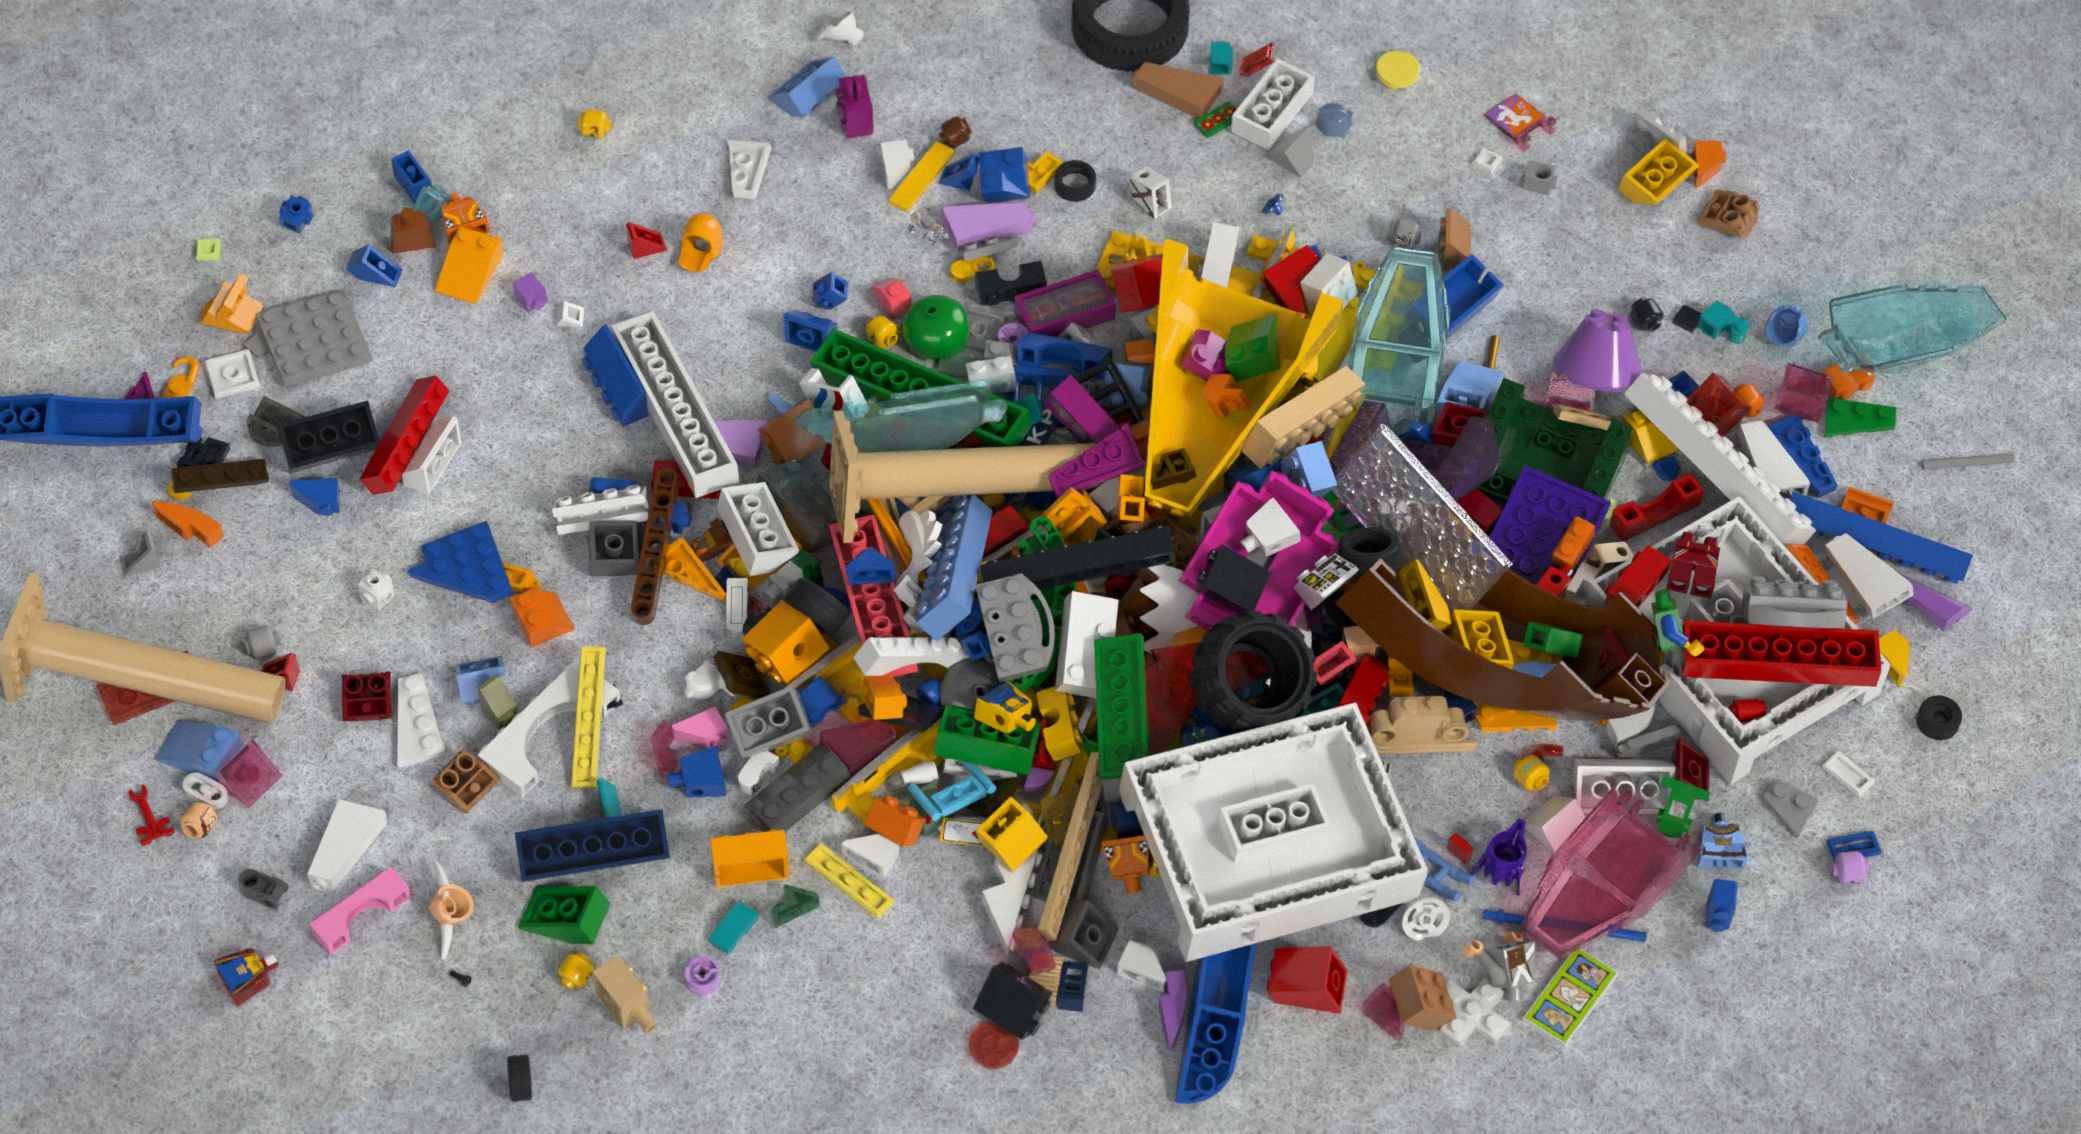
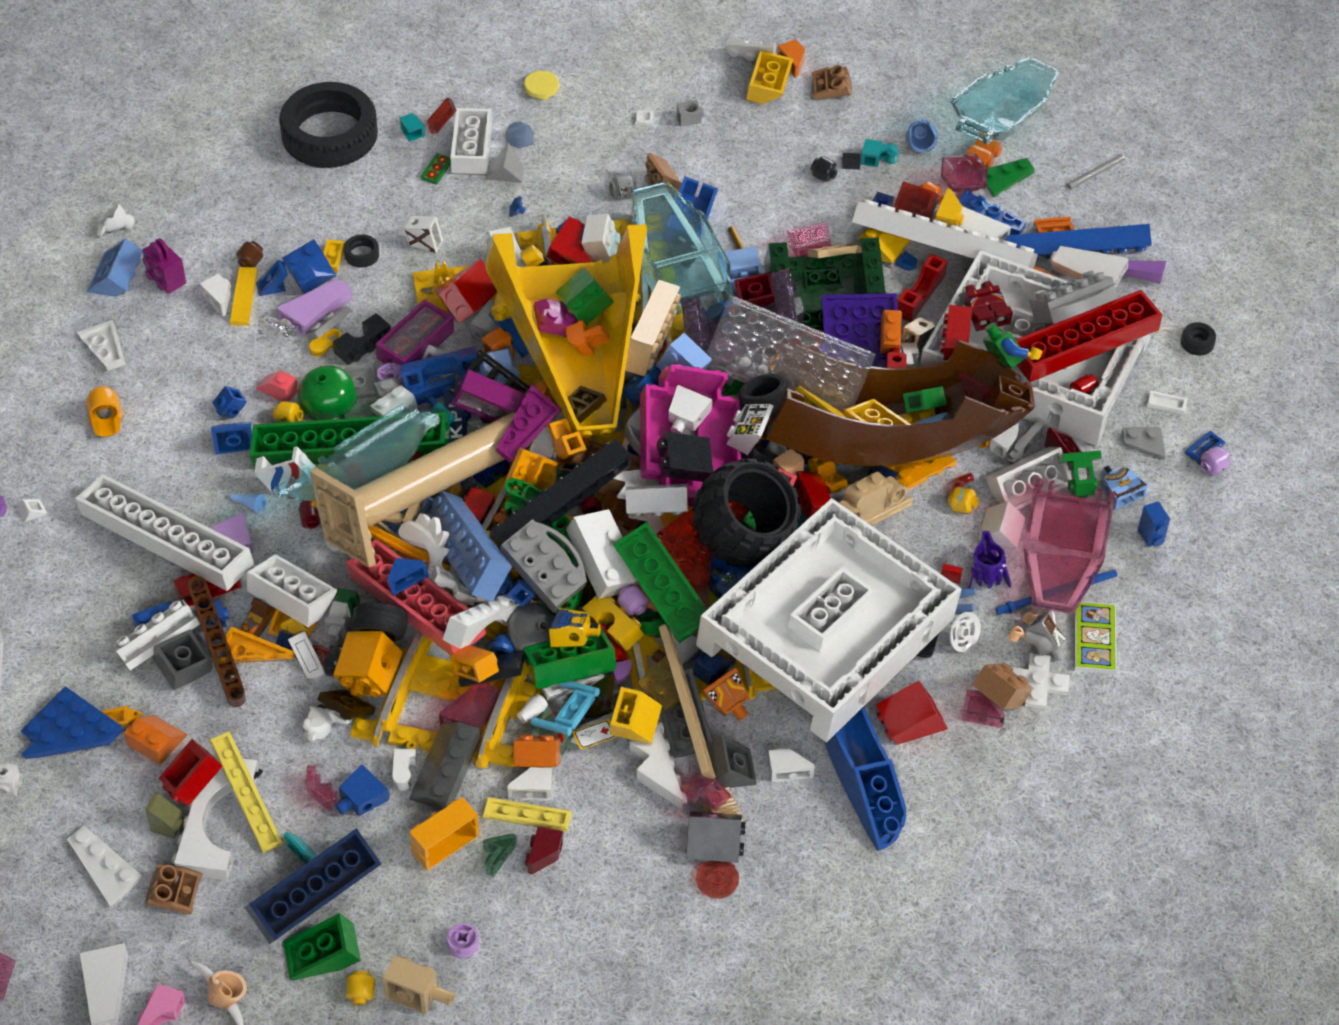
camera: 30 degrees left, 5 degrees down
(366, 702) = (50, 865): dark red slope -> none
(475, 673) = (131, 807): medium blue slope -> none
(546, 670) = (196, 779): none -> red window
(615, 378) = (101, 534): blue slope -> none
(644, 241) = (57, 430): red slope -> none
(702, 730) = (341, 759): bright pink slope -> none
(733, 926) = (462, 892): teal slope -> none
(769, 722) = (395, 725): light grey slope -> none
(786, 438) = (270, 514): dark orange brick -> none
(802, 504) = (312, 556): dark grey brick -> none
(820, 699) = (418, 696): blue cylinder -> none
(840, 926) = (545, 849): none -> dark red slope
(1070, 1000) = (753, 816): dark blue slope -> none
(1086, 709) = (633, 600): none -> lavender head
(1173, 613) = (656, 499): none -> light grey brick
(1173, 1006) = (831, 783): medium lavender slope -> none
(1178, 88) = (395, 158): medium nougat slope -> none
(1241, 278) = (534, 257): none -> yellow leg
(1518, 118) = (648, 83): flag -> none
(1600, 353) = (818, 201): medium lavender cone -> none
(1747, 432) = (950, 210): none -> yellow slope

